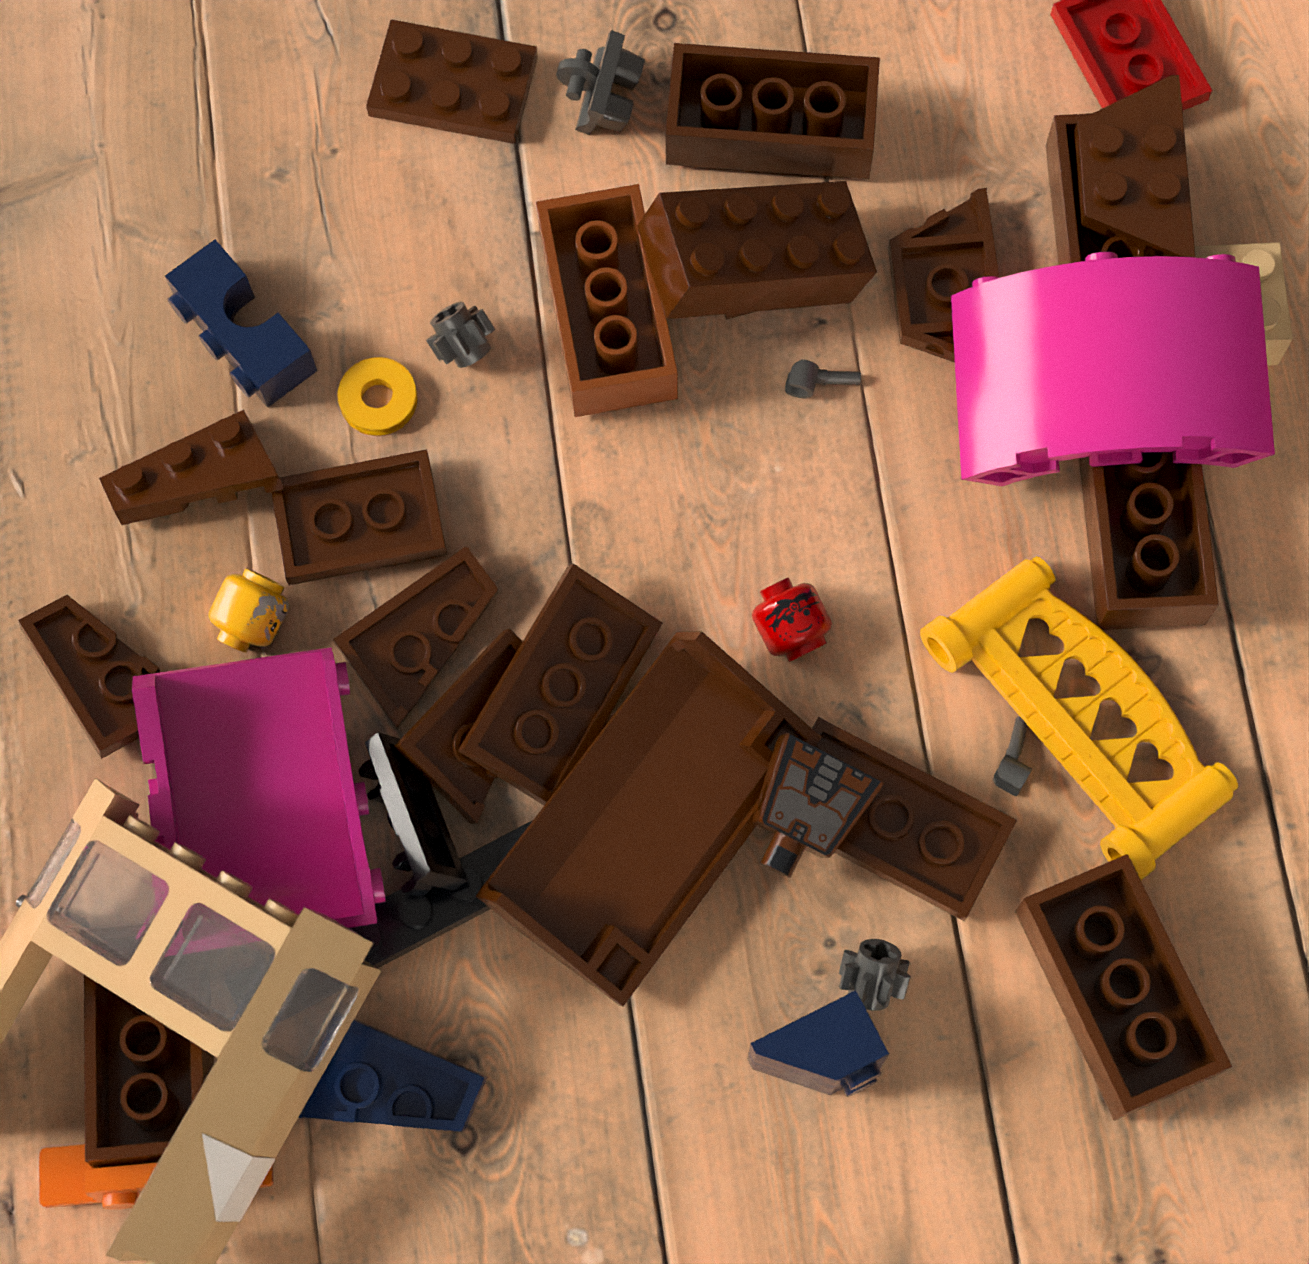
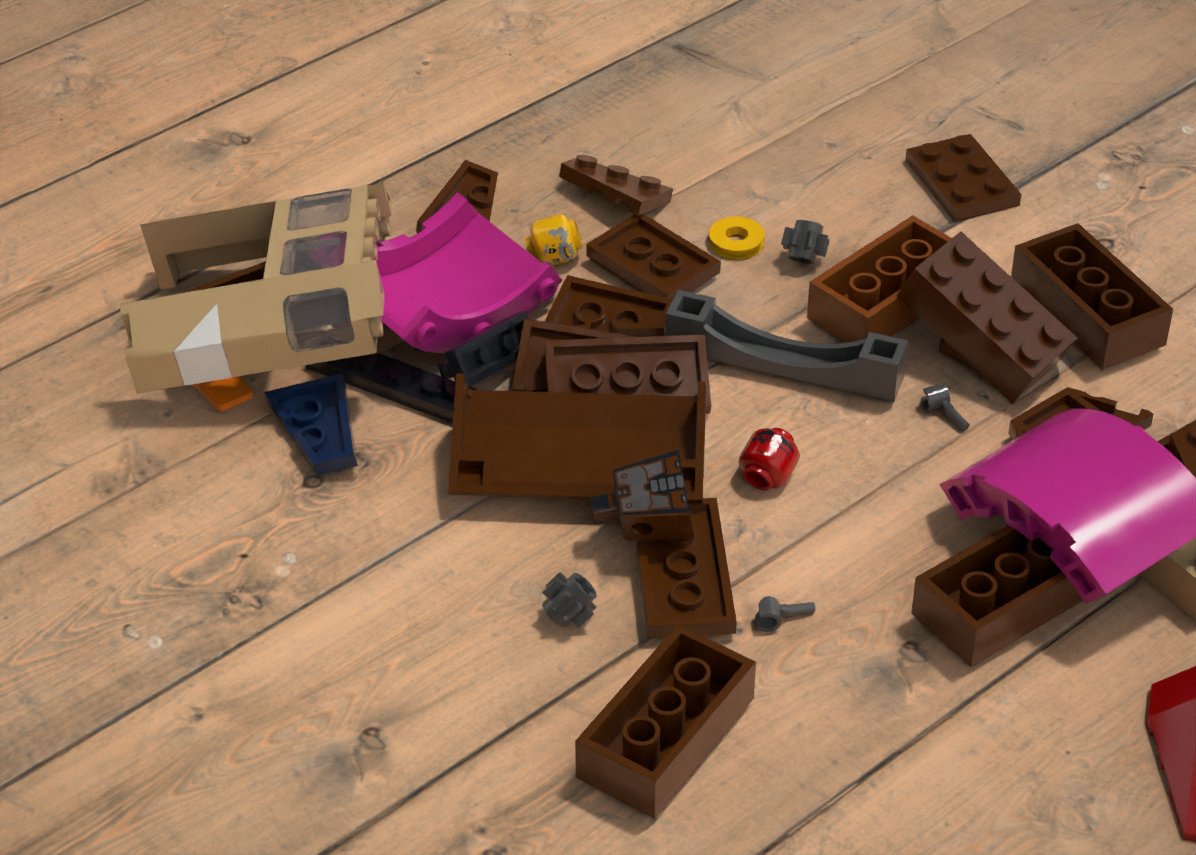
camera: 55 degrees right, 30 degrees down
(264, 357) = (716, 164): dark blue arch -> none
(610, 66) = (1025, 222): dark grey hips -> none
(711, 428) = (861, 367): none -> dark grey arch
(824, 1049) = (499, 585): dark blue slope -> none
(1146, 814) = (801, 686): yellow piece -> none

